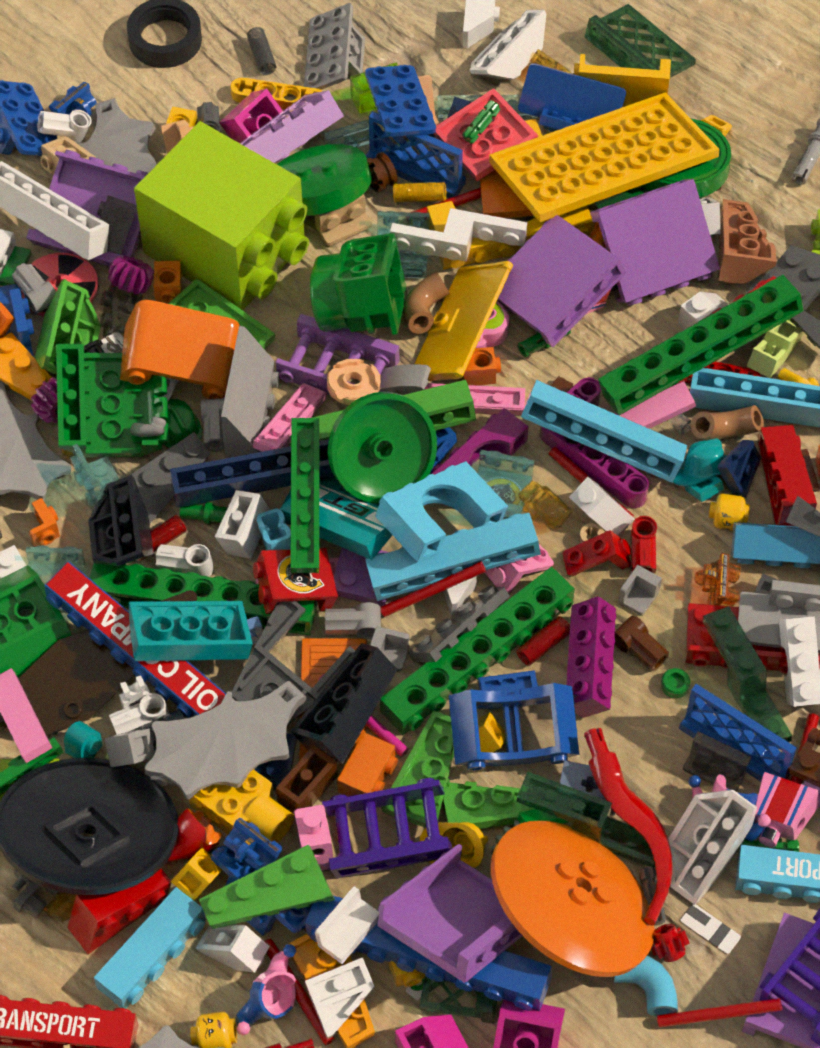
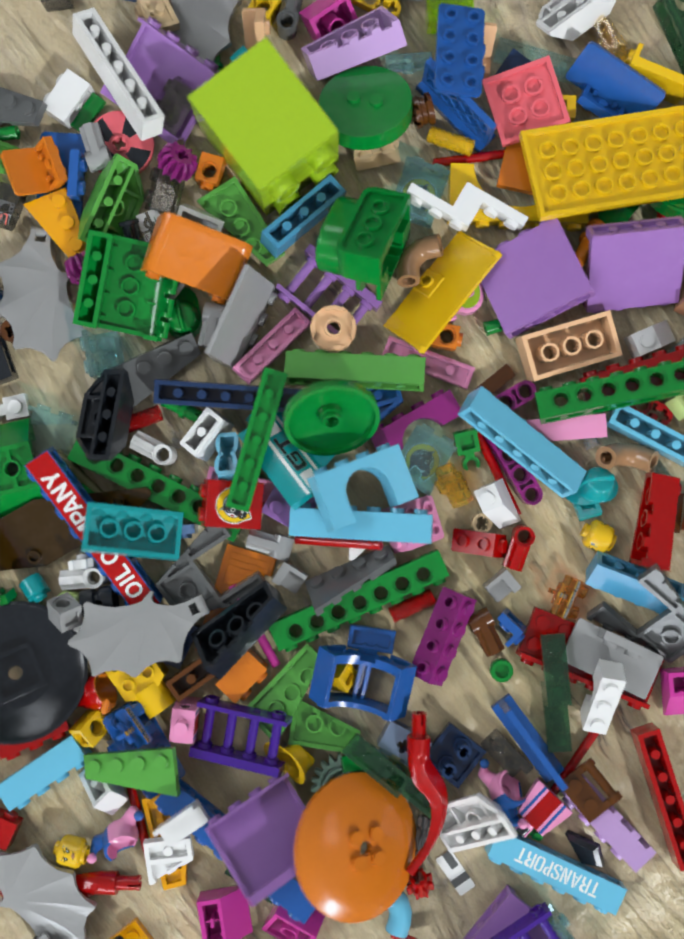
camera: 20 degrees right, 30 degrees up
(48, 529) = (54, 379): orange bracket -> none
(156, 428) = (156, 327): light grey arm -> none
(281, 292) = (301, 216): none -> dark azure brick
(404, 378) = (377, 333): light grey slope -> none
(481, 122) = (525, 91): green axle -> none
(546, 463) = (467, 444): none -> green plate
(617, 335) = (568, 346): none -> light nougat brick
(658, 783) = (455, 754): none -> dark blue plate
(664, 624) = (512, 624): none -> blue bracket
(740, 467) = (621, 502): dark blue wing -> none

